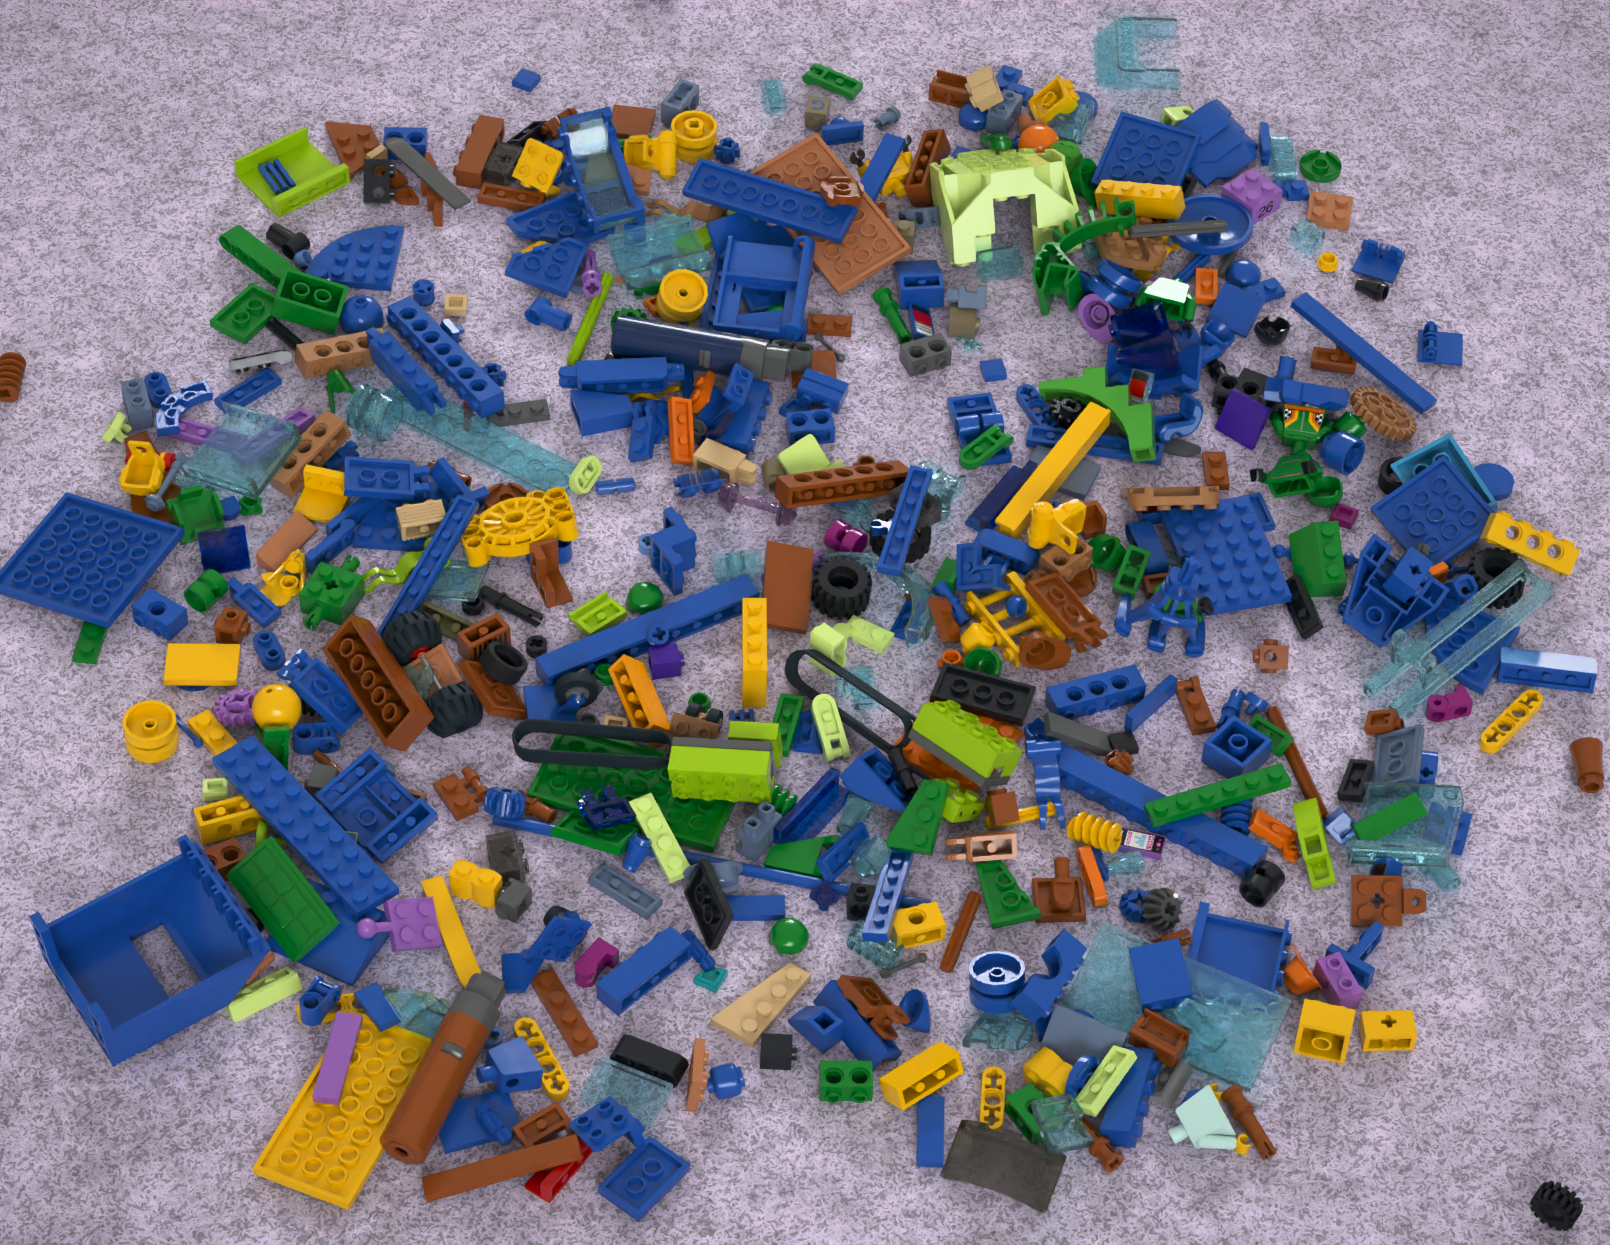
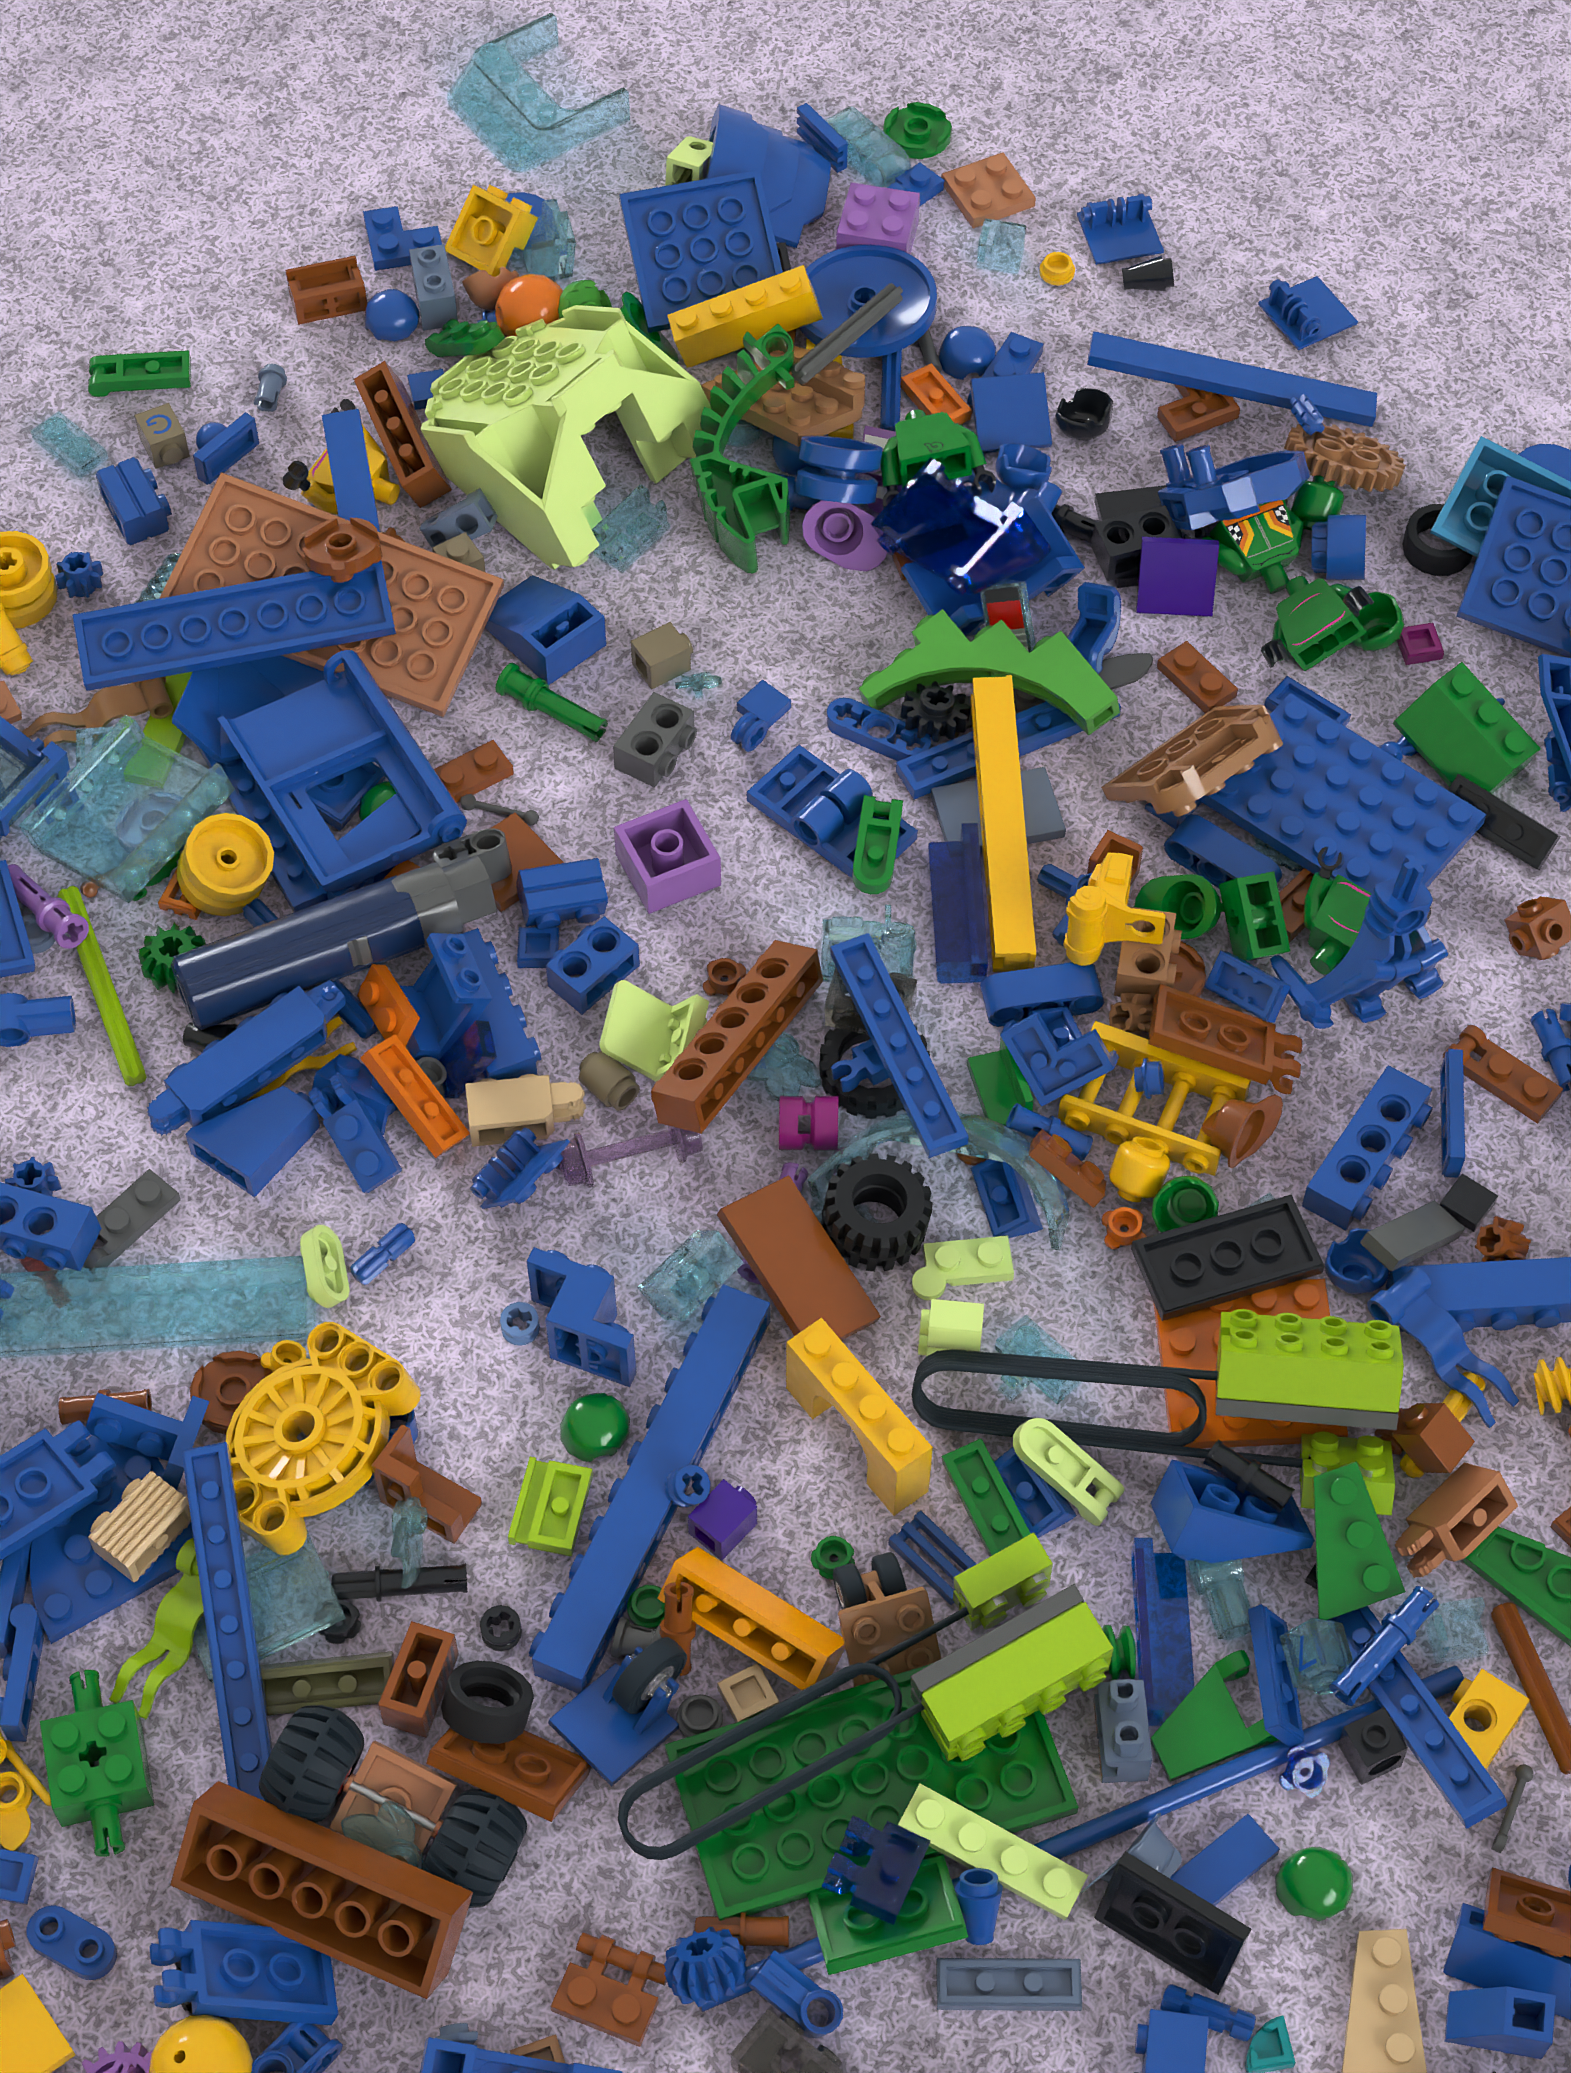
camera: 35 degrees left, 10 degrees up
(524, 586) = (408, 1525): none -> clear light blue plate
(532, 835) = (792, 1992): none -> blue piece
(605, 681) = (678, 1619): none -> dark orange pin
(779, 132) = (133, 500): none -> blue brick
(880, 953) = (1430, 1808): clear light blue piece -> none
(883, 402) = (667, 856): none -> medium lavender brick
(899, 864) = (1395, 1632): none -> blue pin
(920, 321) = (599, 693): slope -> none
(945, 888) = (1457, 1630): none -> clear light blue panel
(968, 298) = (645, 610): sand blue hips -> none
(973, 375) = (749, 731): none -> blue bush
(983, 88) = (389, 264): tan brick -> none
(1103, 600) = (1247, 986): none -> blue plate
(1380, 384) = (1307, 414): none -> blue axle

